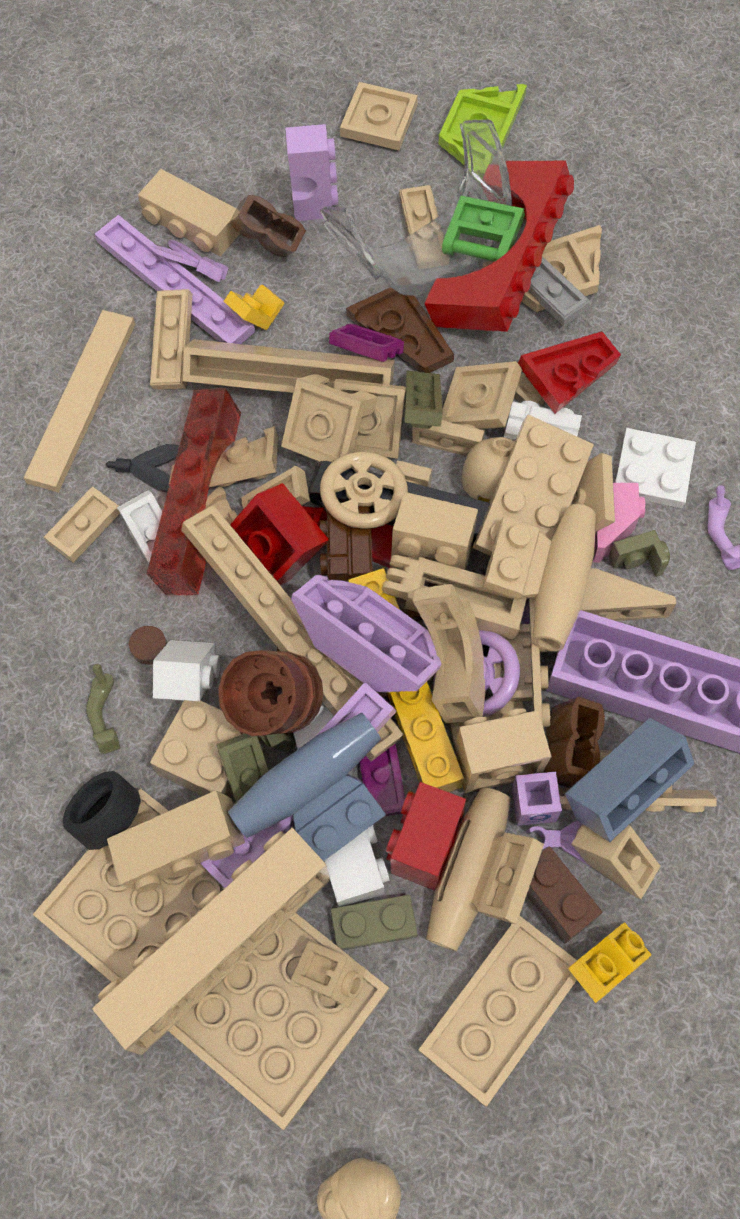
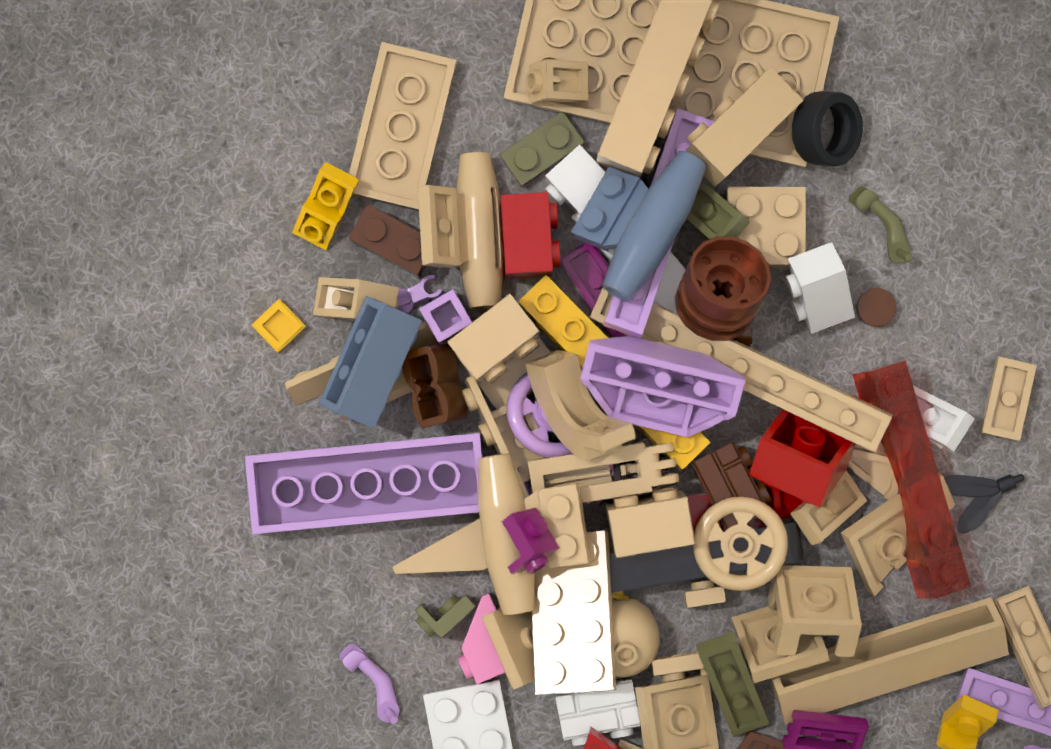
camera: 155 degrees right, 20 degrees up
(548, 550) = (531, 539): none -> magenta bracket
(697, 869) = (279, 325): none -> yellow tile

